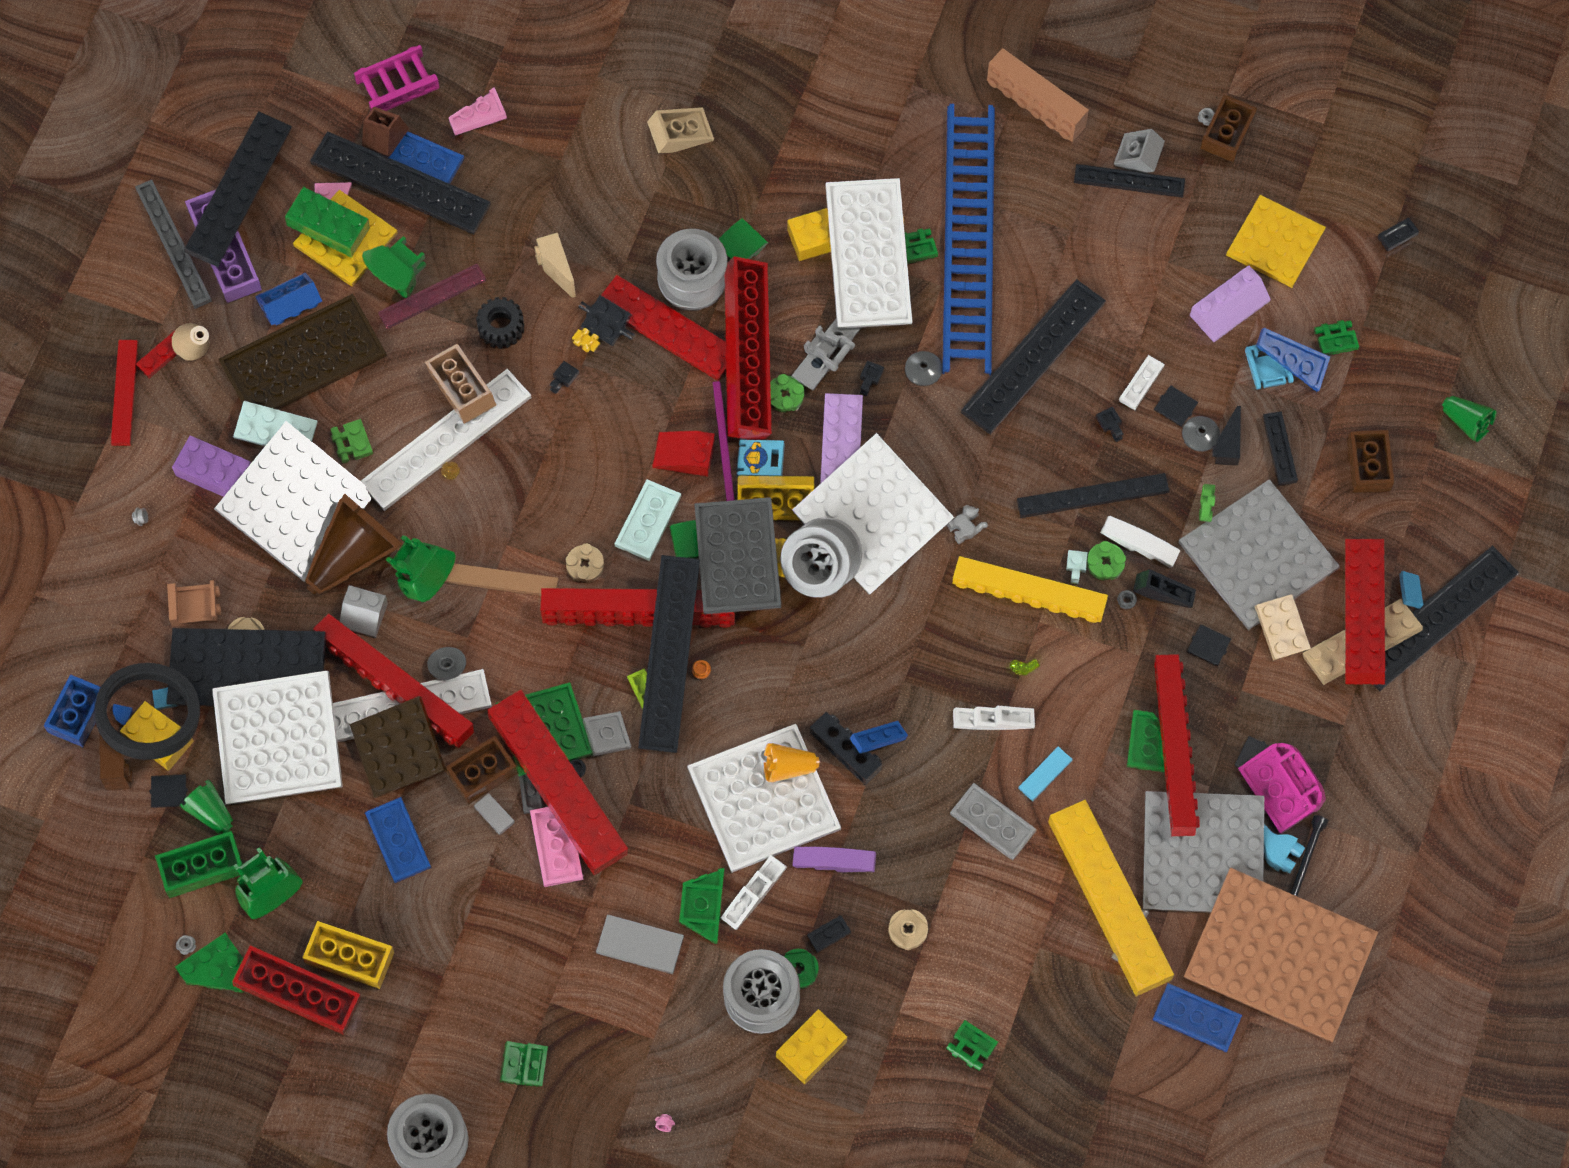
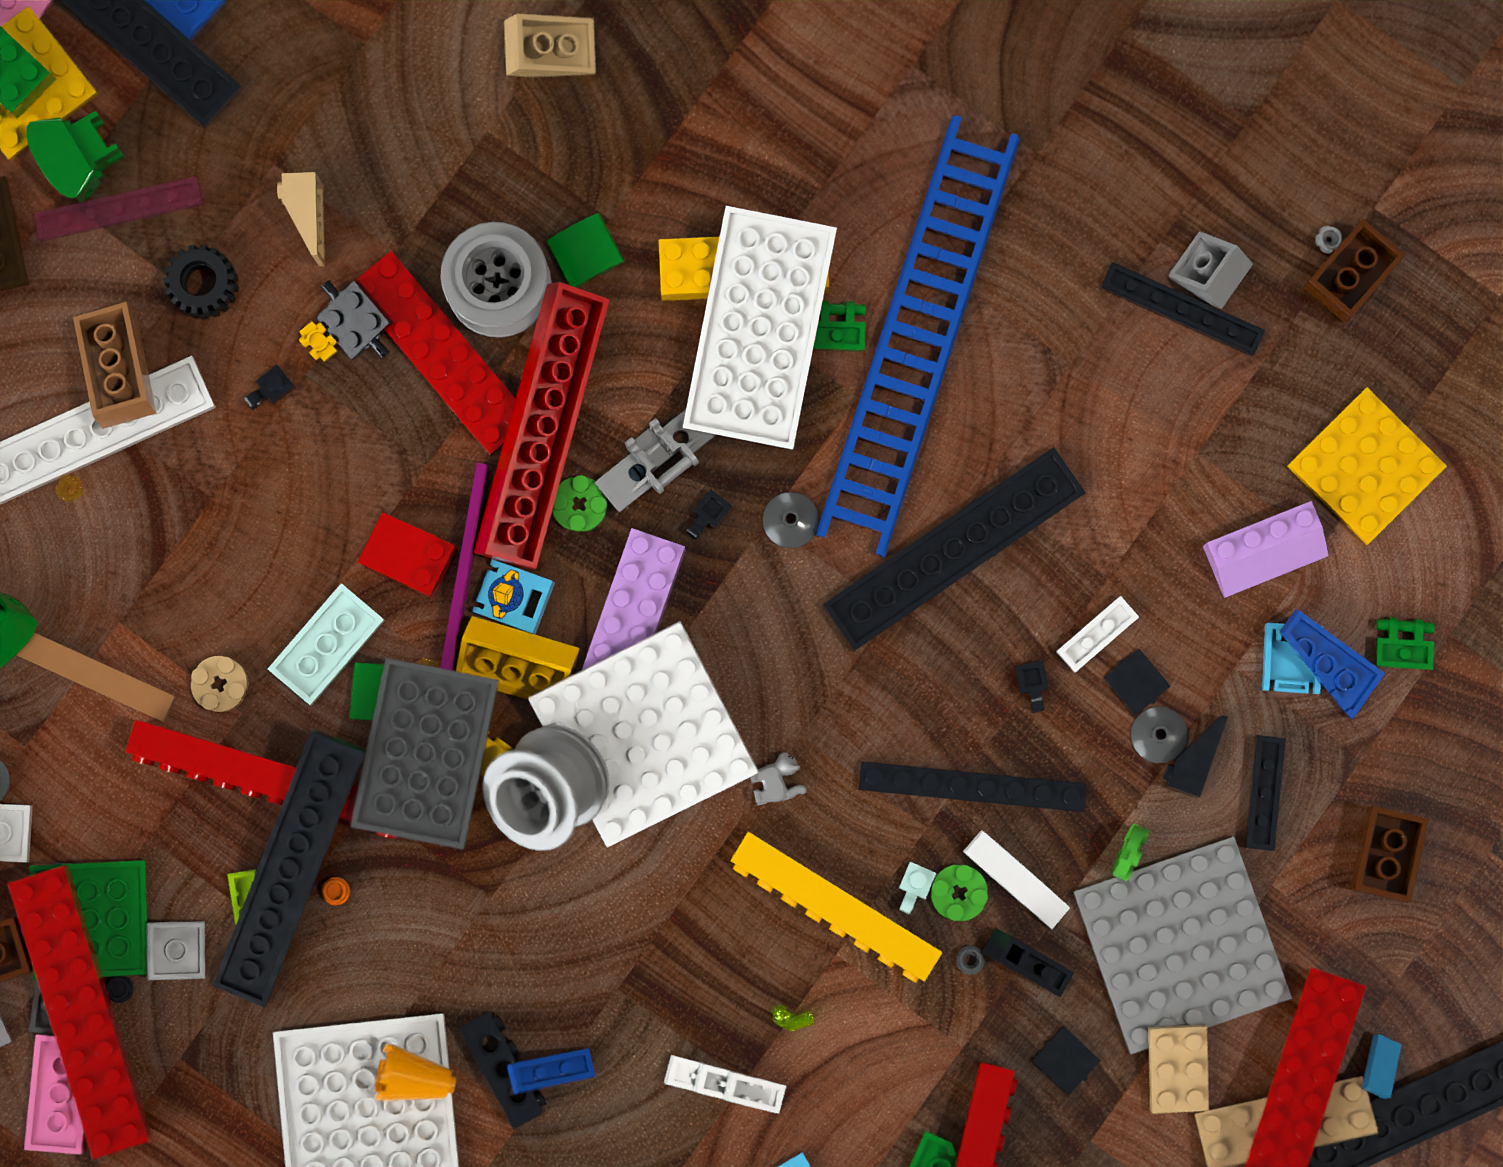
camera: 20 degrees right, 15 degrees up
(1037, 95) = (1086, 139): nougat brick -> none

